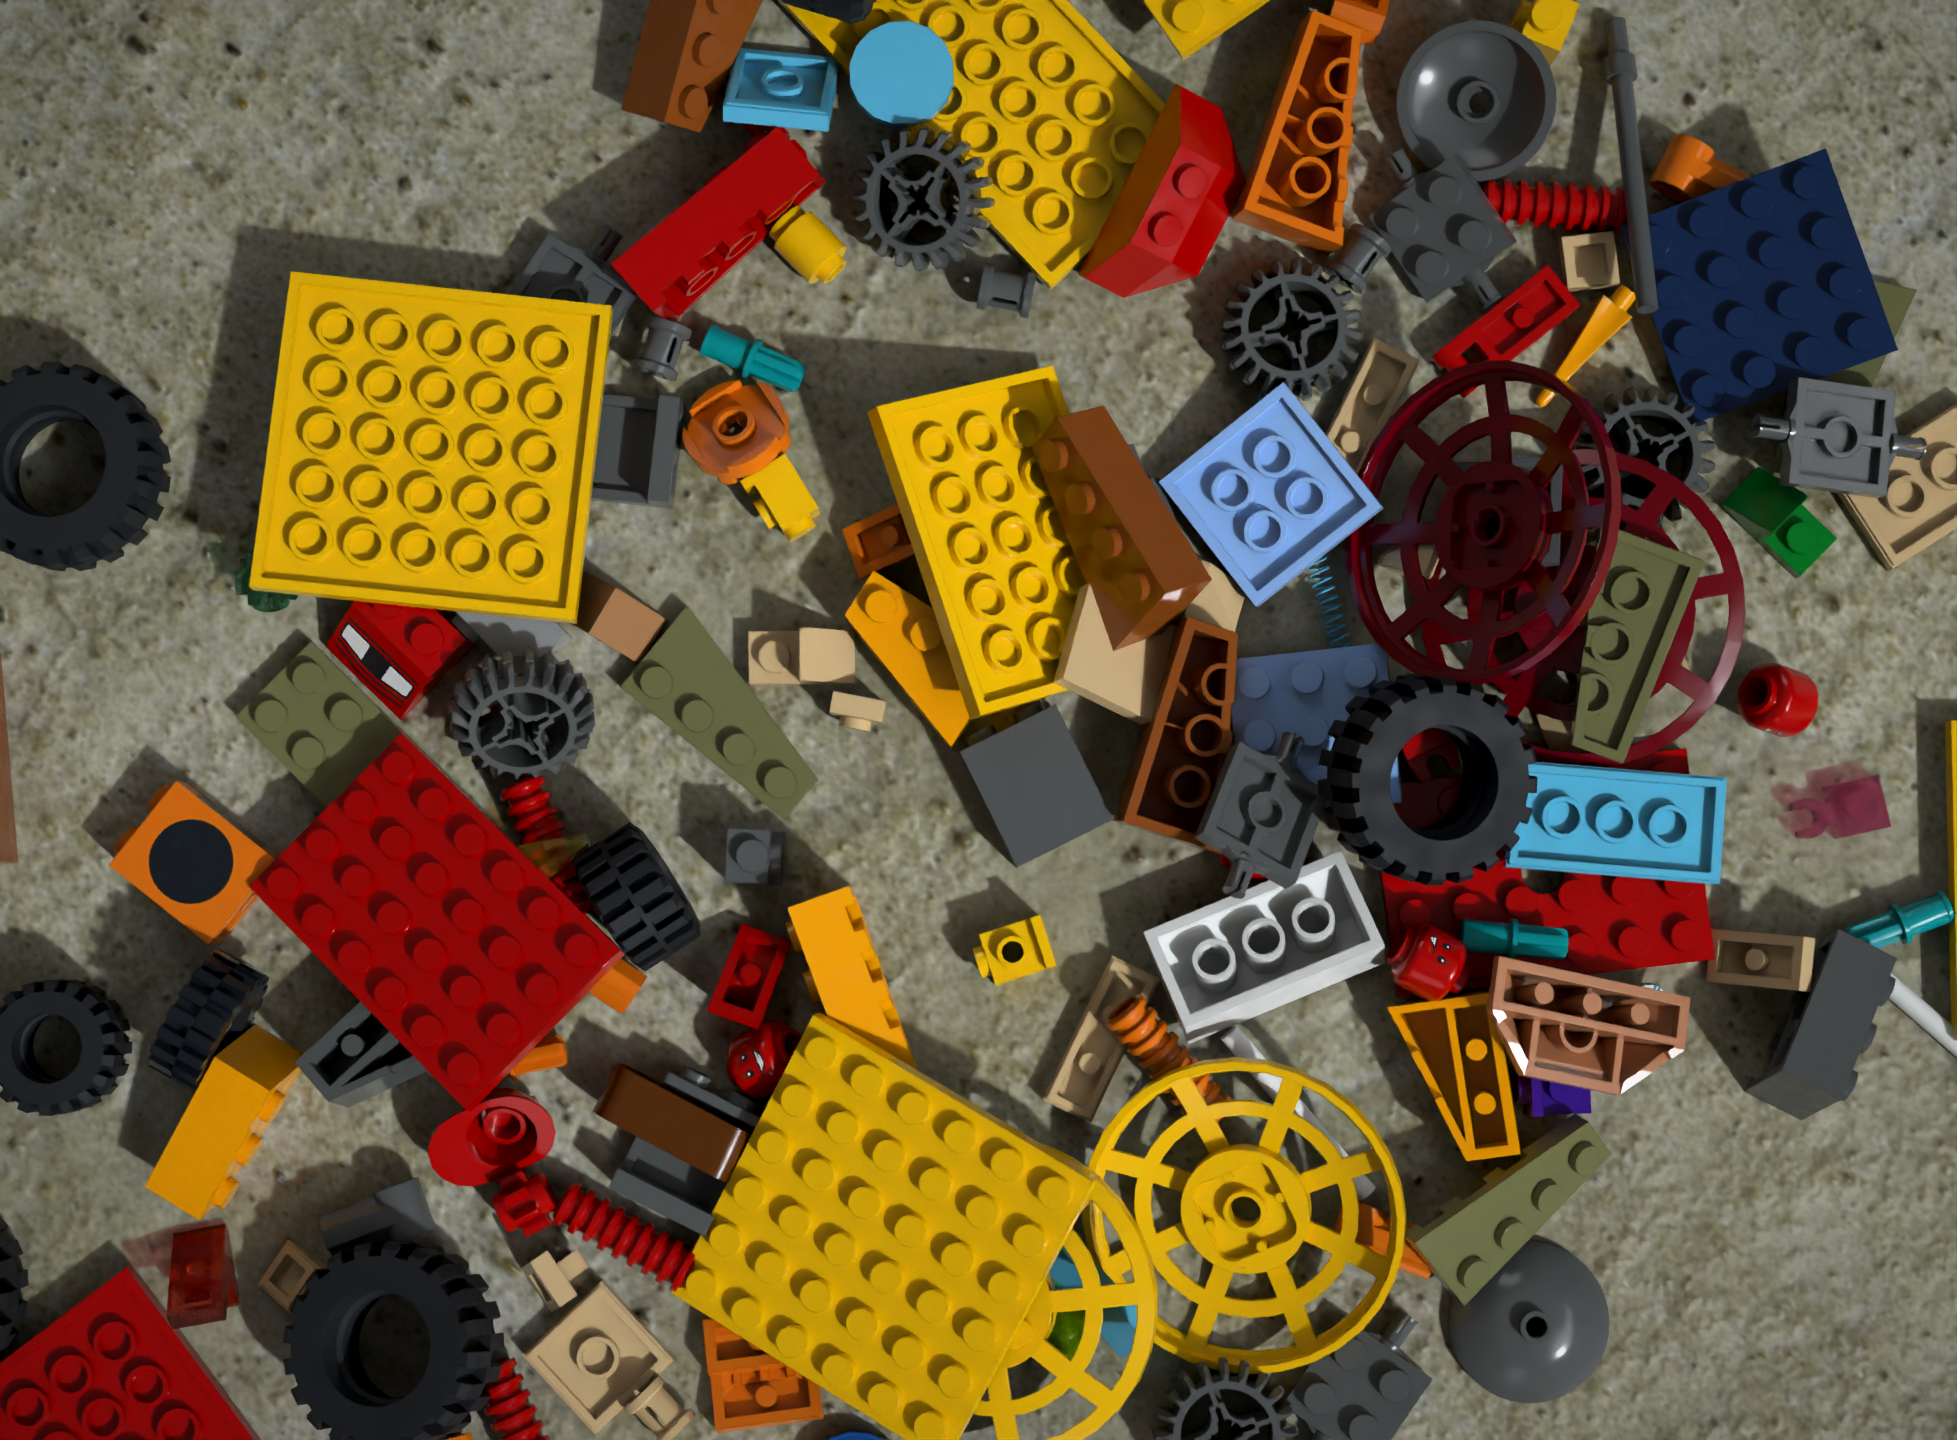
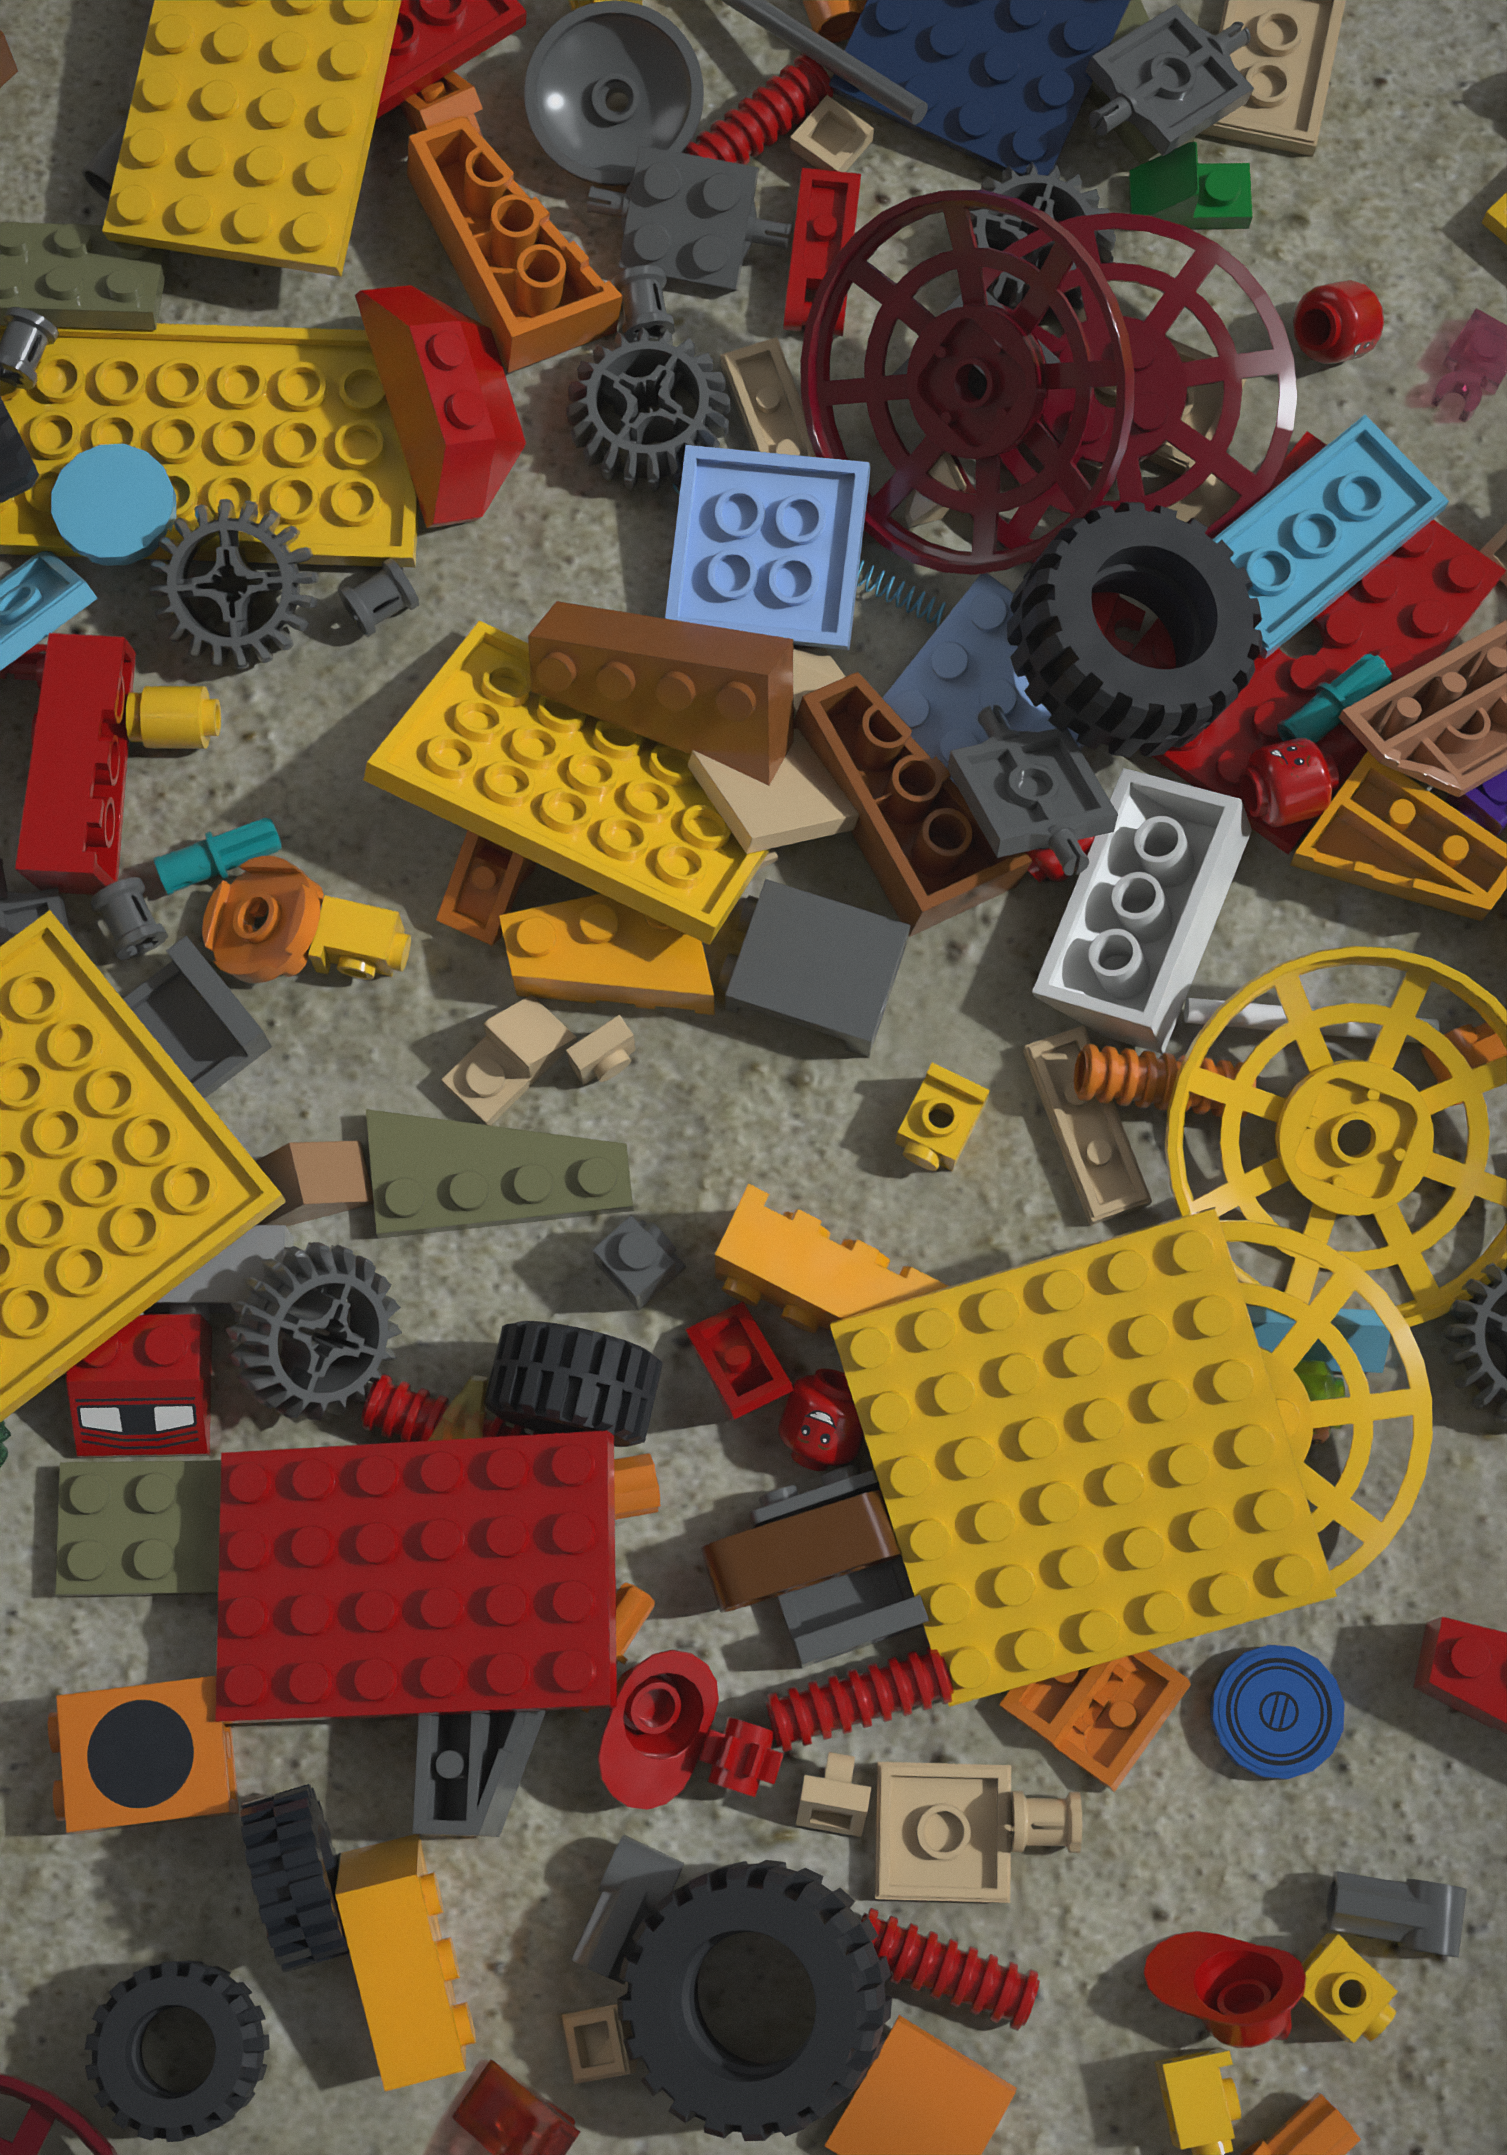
camera: 45 degrees left, 10 degrees down
(1601, 325) = (892, 180): light orange piece -> none
(1628, 641) = (1179, 368): olive wing -> none

